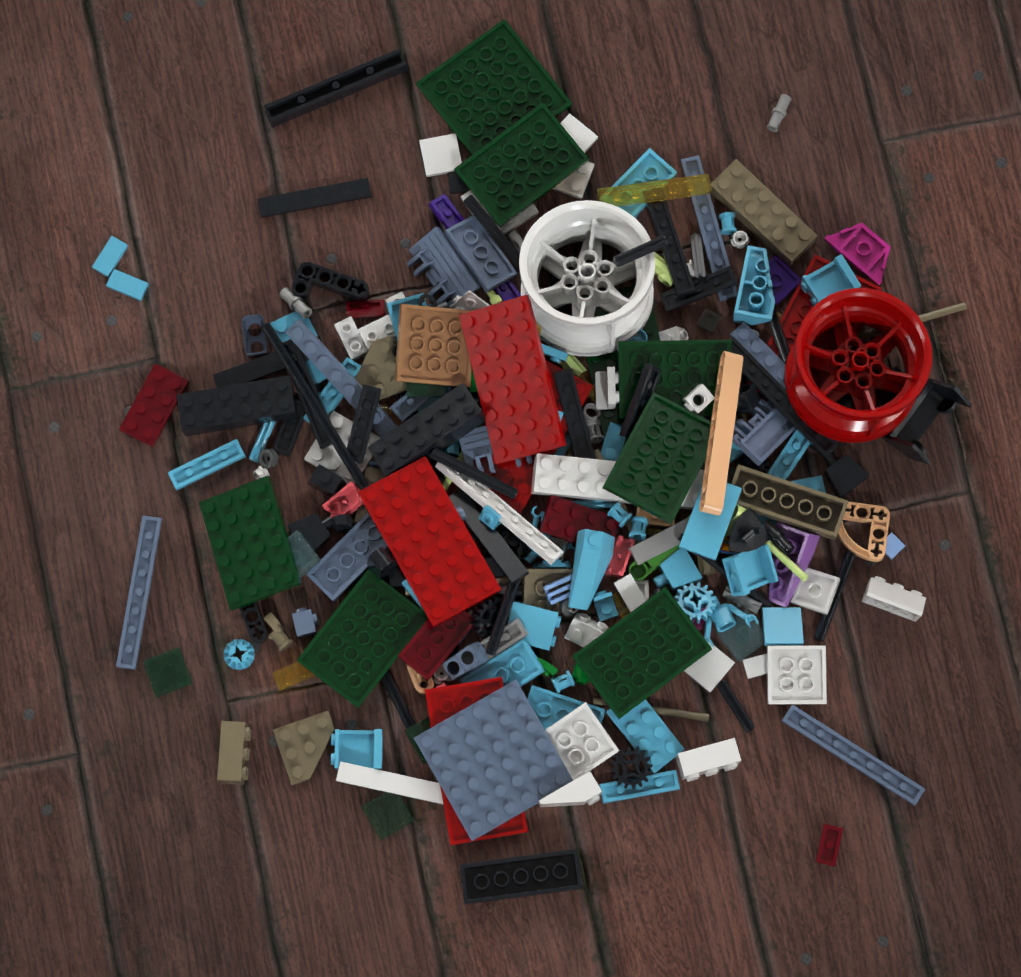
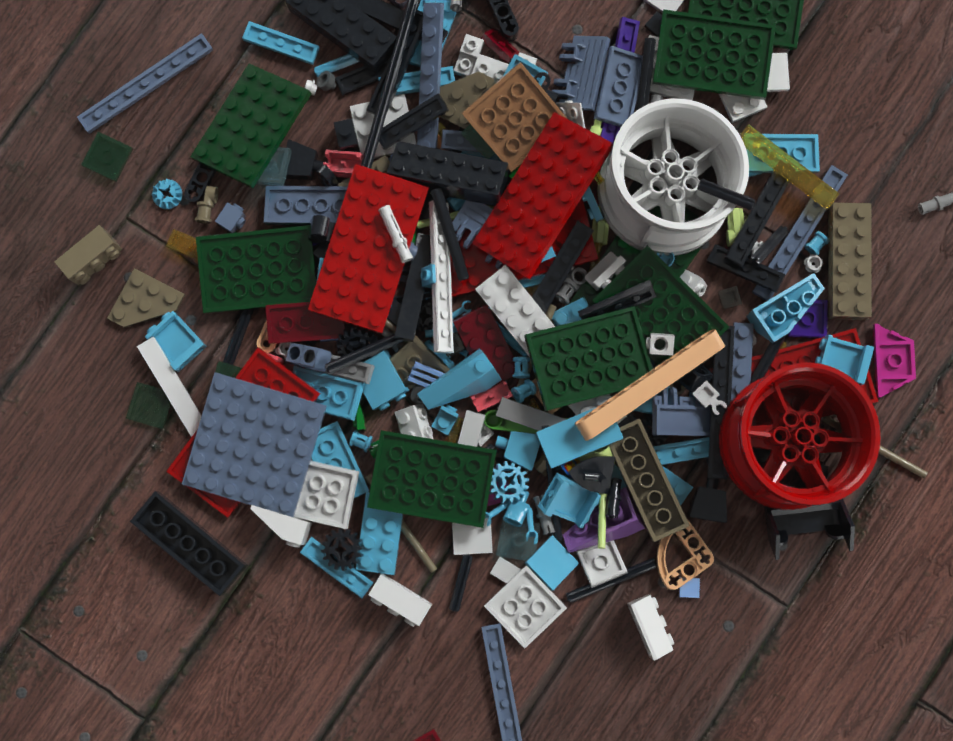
camera: 50 degrees right, 5 degrees up
(433, 508) = (397, 237): none -> white pin
(766, 402) = (707, 396): none -> white plate

